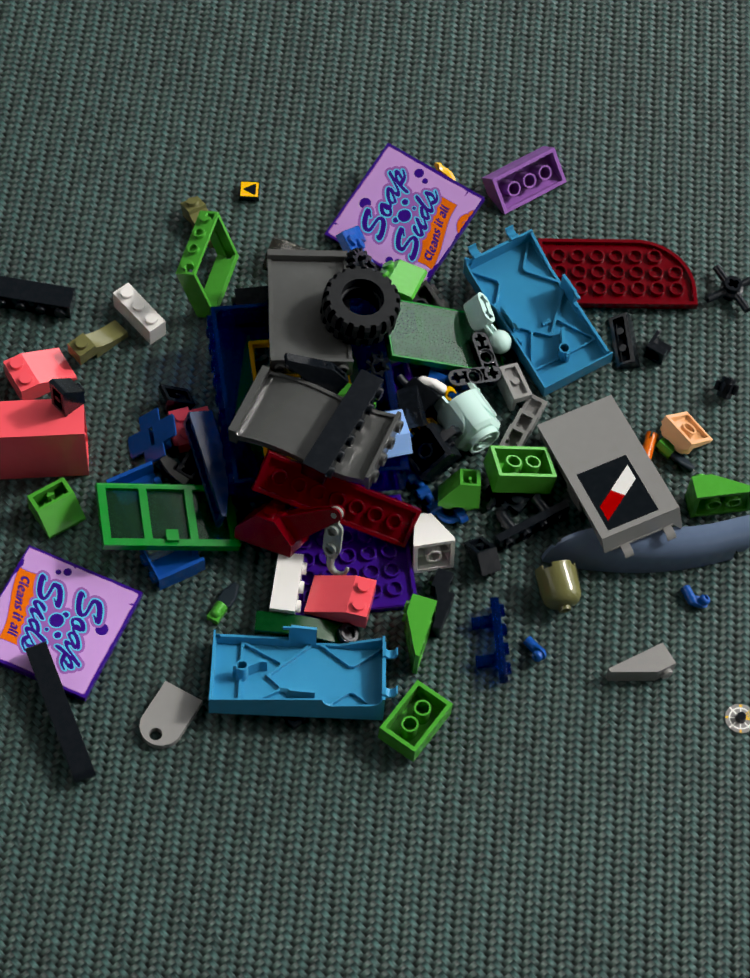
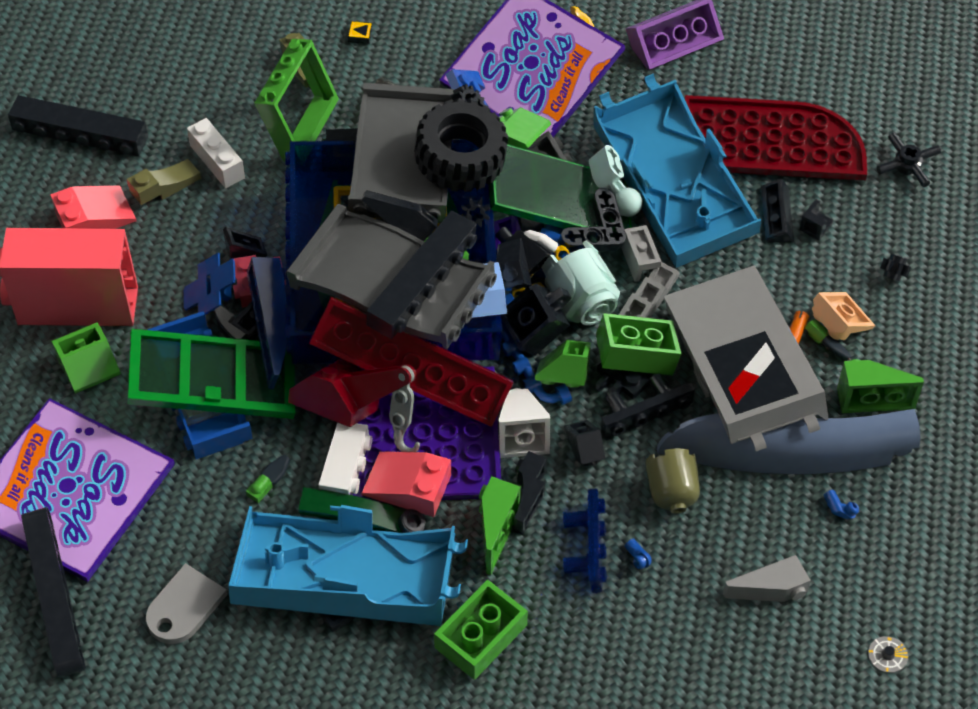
camera: 10 degrees right, 5 degrees down
(66, 395) = (102, 222): black slope -> none

